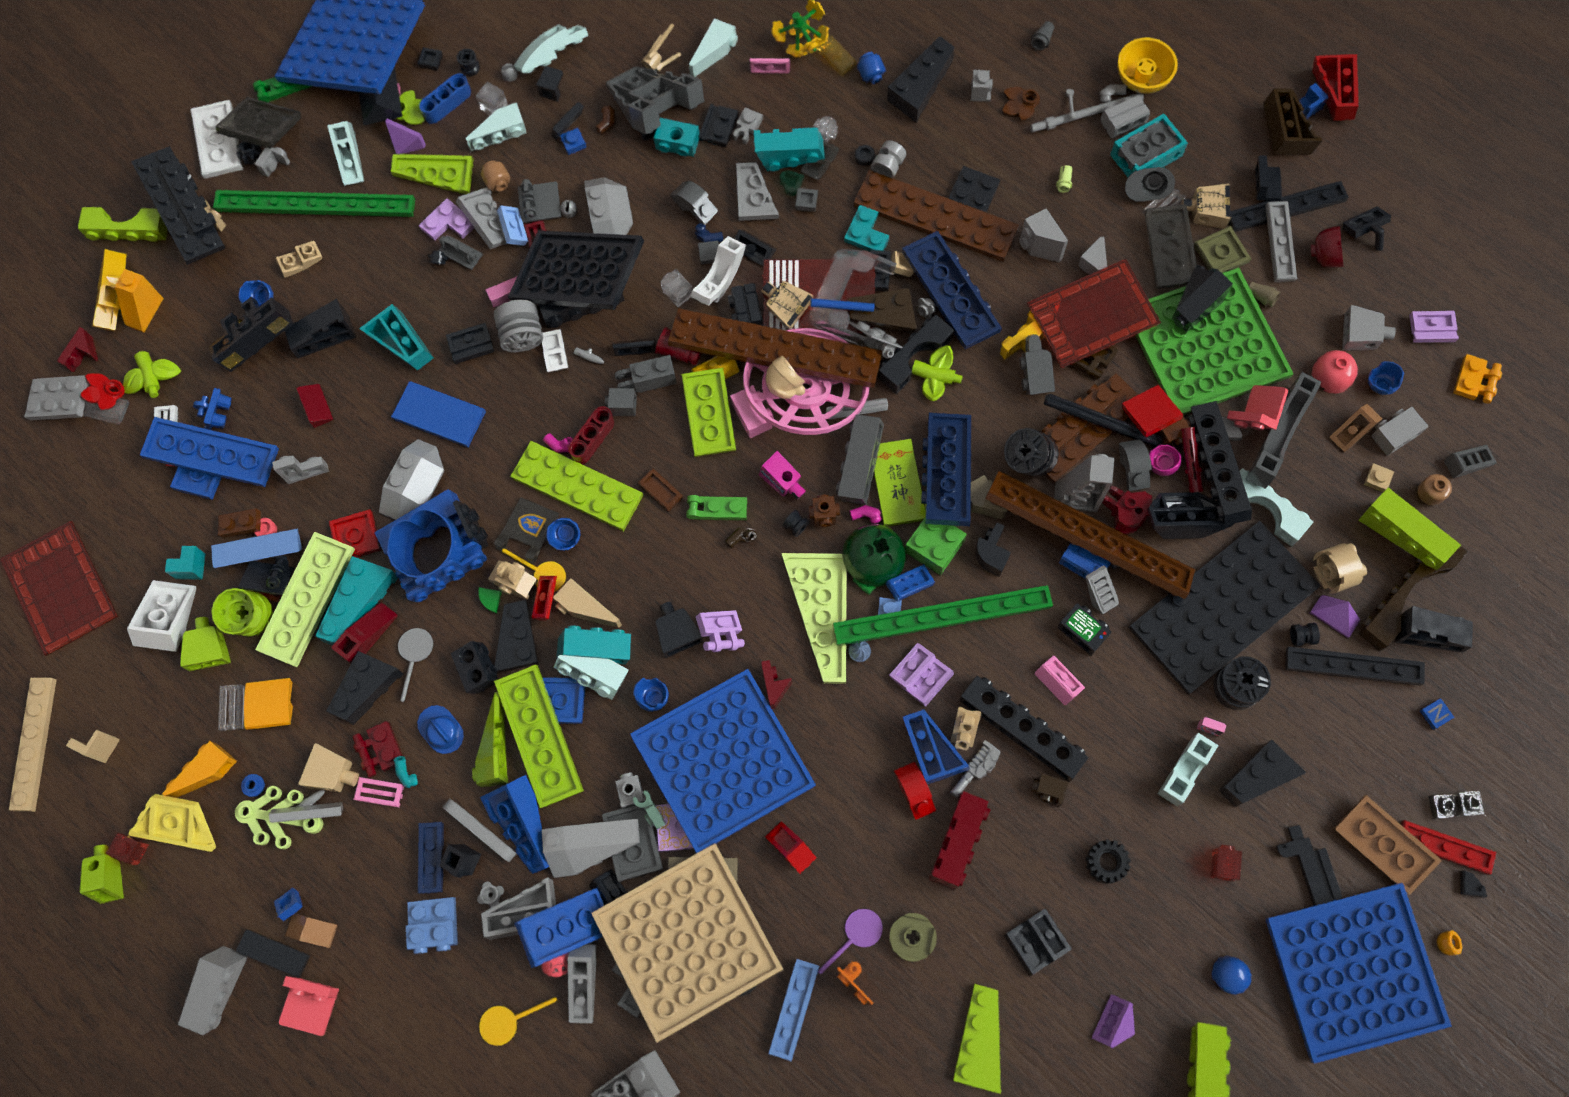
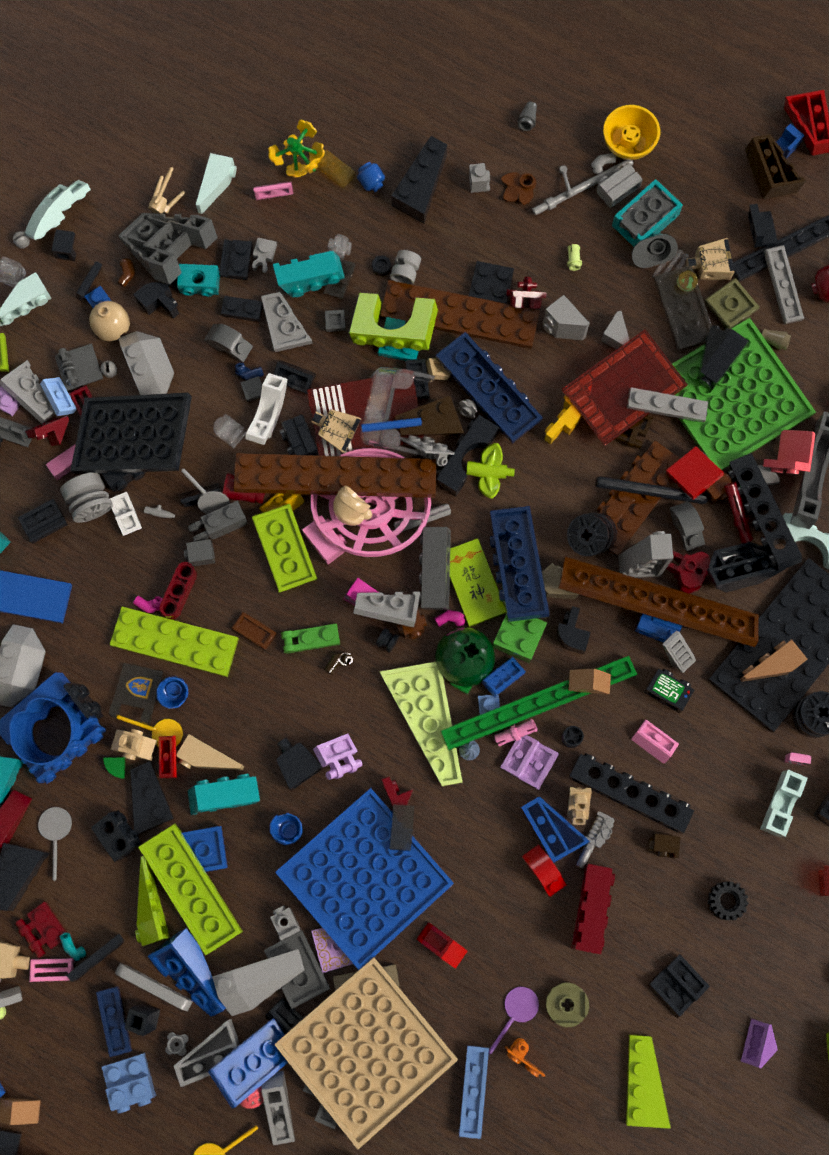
camera: 15 degrees left, 5 degrees up
(426, 788) = (96, 958): none -> black tile
(440, 729) = (96, 899): blue piece -> none
(495, 176) = (31, 349): medium nougat head -> none
(499, 255) = (52, 429): none -> dark red slope
(578, 161) = (109, 320): none -> tan cylinder
(596, 673) = (231, 820): light aqua slope -> none
(628, 146) = (156, 295): none -> black brick
(640, 350) = (209, 500): none -> light grey piece
(653, 815) = (311, 943): sand green plate -> none
(714, 173) = (242, 308): none -> black plate
(772, 715) = (401, 828): none -> clear smoke slope
(791, 182) = (317, 304): clear green tile -> none
(806, 488) = (390, 608): none -> light grey wing
(883, 223) = (414, 334): none -> lime arch
(912, 641) = (515, 732): none -> bright pink pin
(974, 654) = (575, 735): none -> black wheel
(1001, 602) = (589, 681): none -> medium nougat slope
(1016, 210) = (517, 296): none -> dark red hips
(1036, 367) = (582, 450): dark grey hinge -> none
(1135, 338) = (667, 405): none -> light grey plate
(1165, 460) = (714, 516): dark pink hair -> none
(1178, 219) = (687, 281): none -> clear yellow tile
(1208, 621) = (780, 663): none -> medium nougat slope

